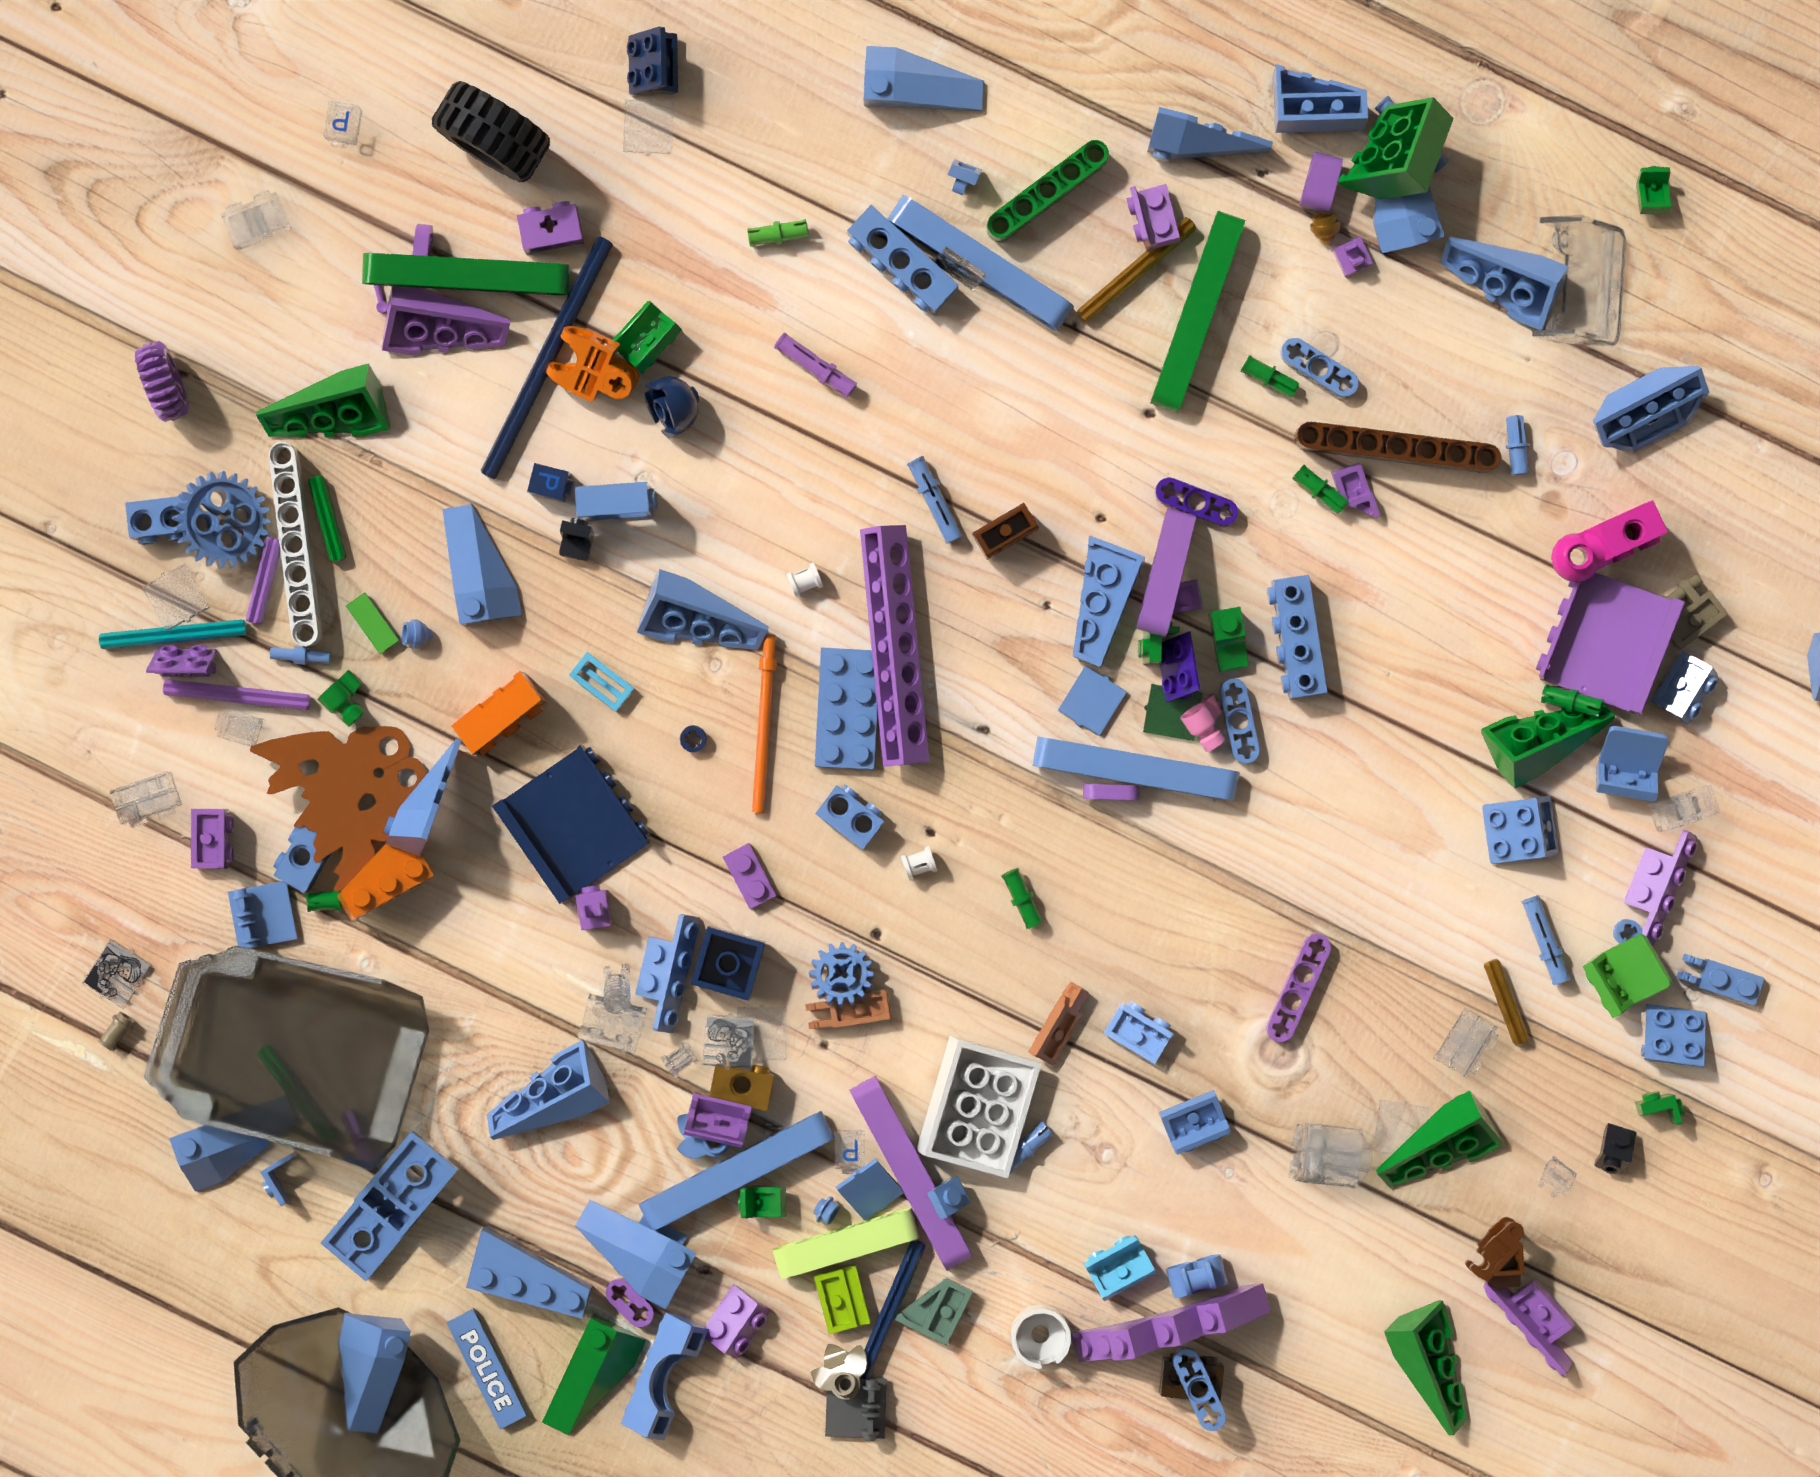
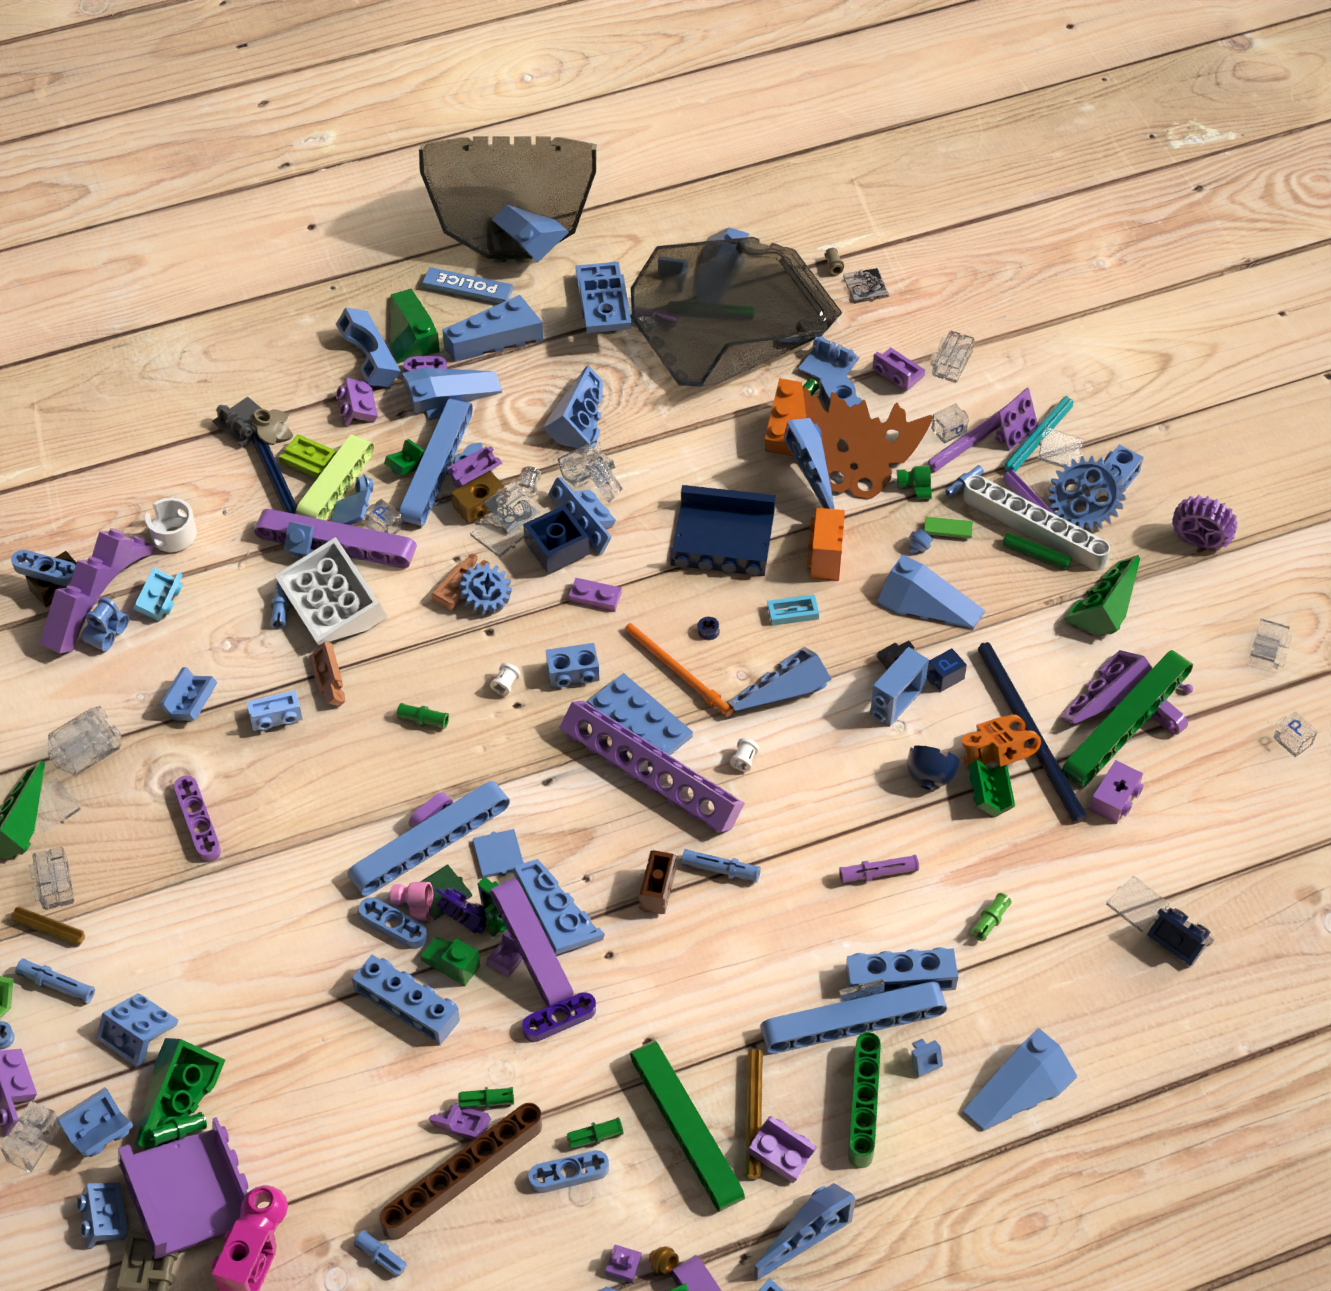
camera: 130 degrees right, 35 degrees down
(491, 131) = (1214, 787): black tyre -> none
(593, 908) = (661, 503): medium lavender brick -> none
(937, 1310) = (247, 493): sand green wing -> none

